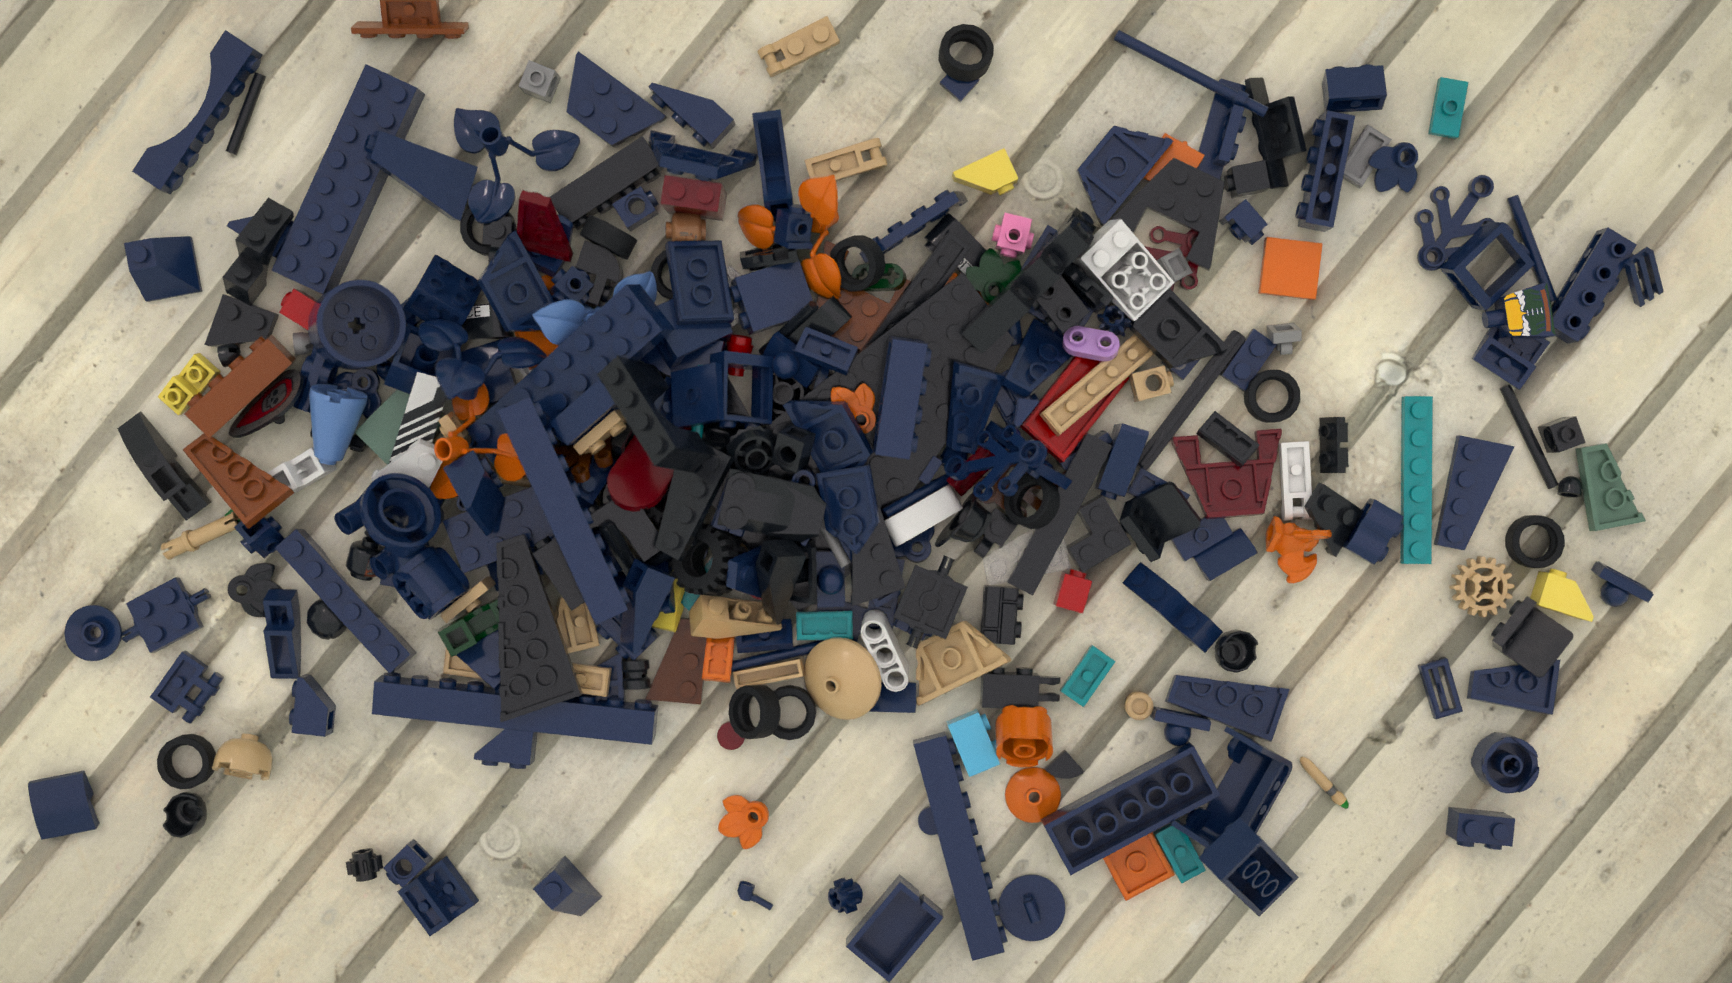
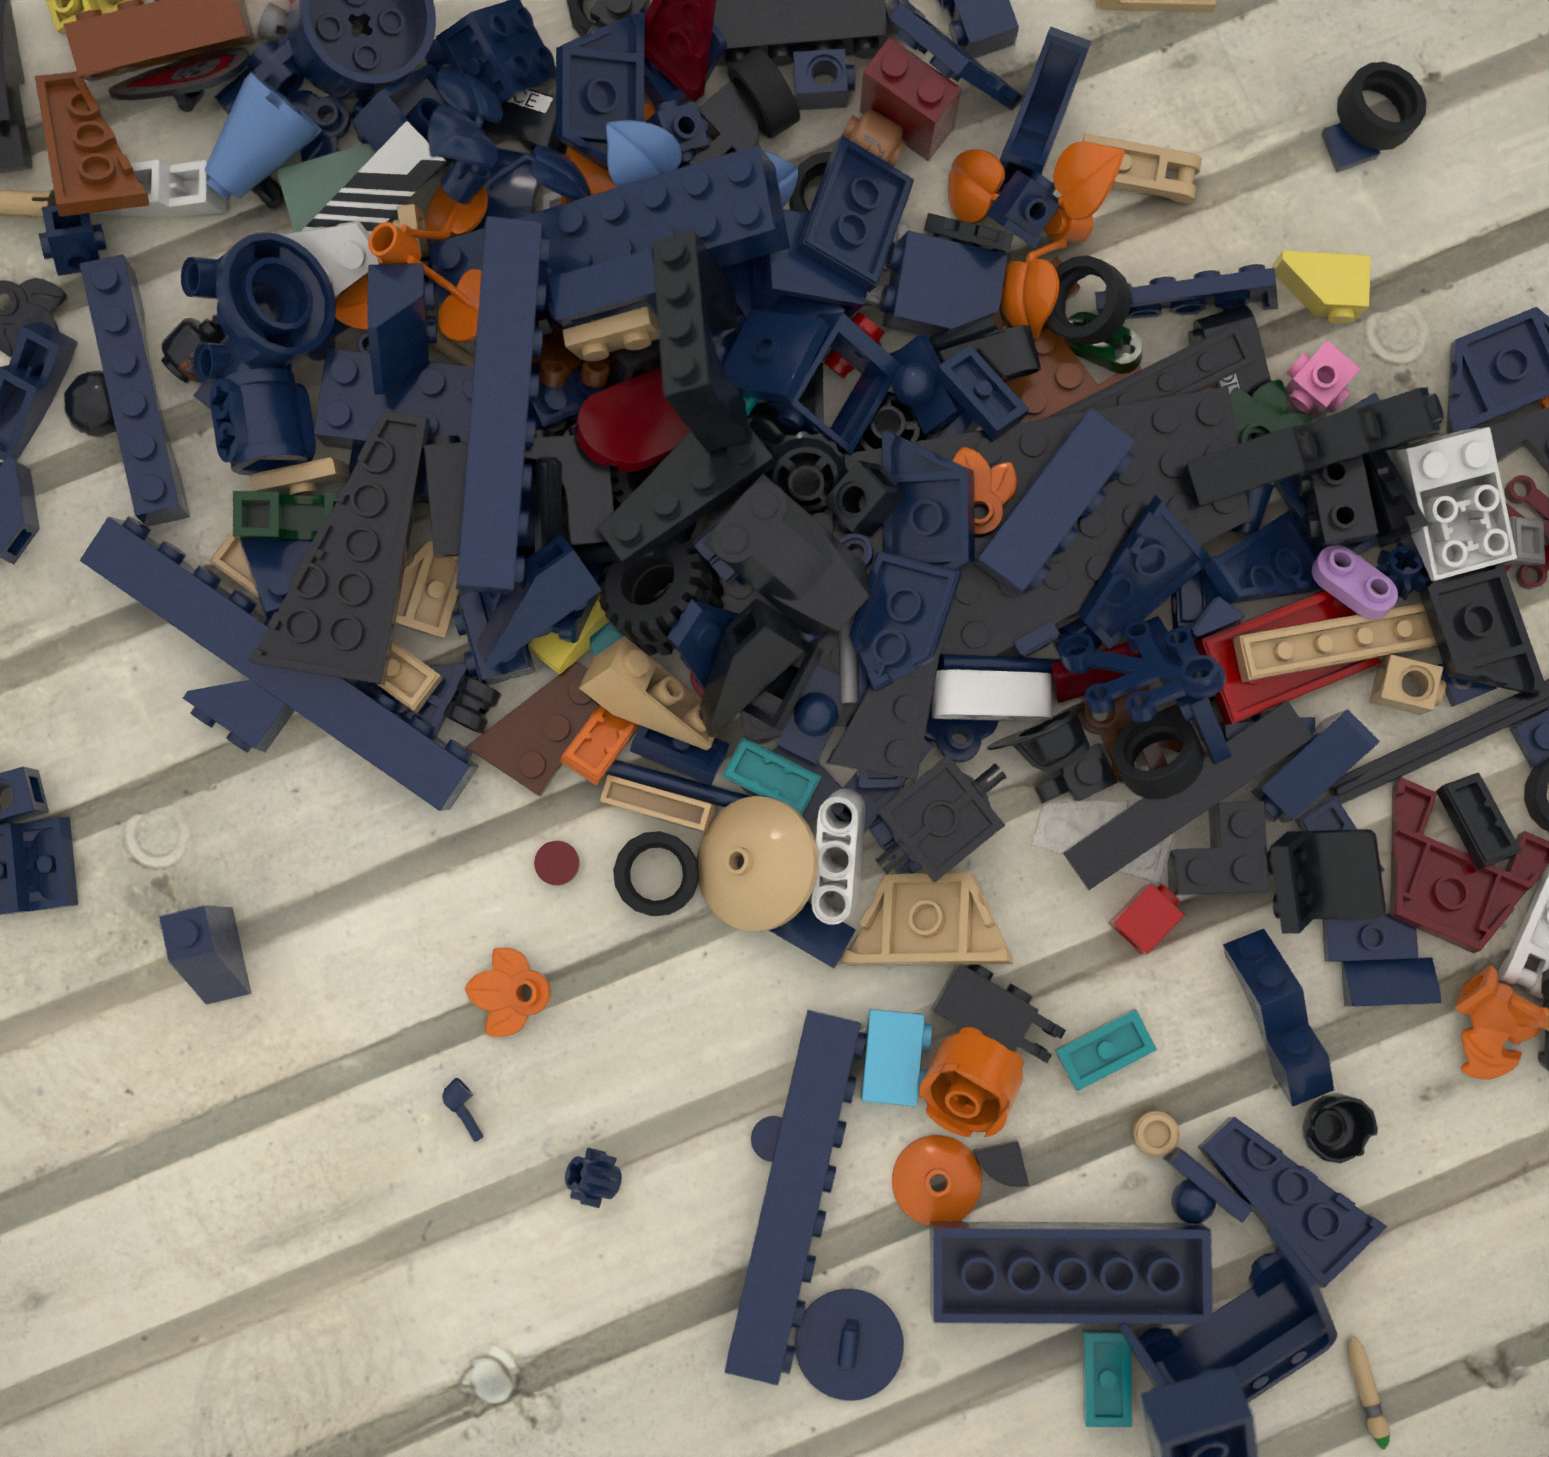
camera: 30 degrees right, 5 degrees down
(769, 711) = (626, 857): black tyre -> none
(894, 928) = (637, 1263): dark blue piece -> none
(1000, 614) = (1028, 894): black brick -> none
(1138, 866) = (1035, 1366): orange tile -> none

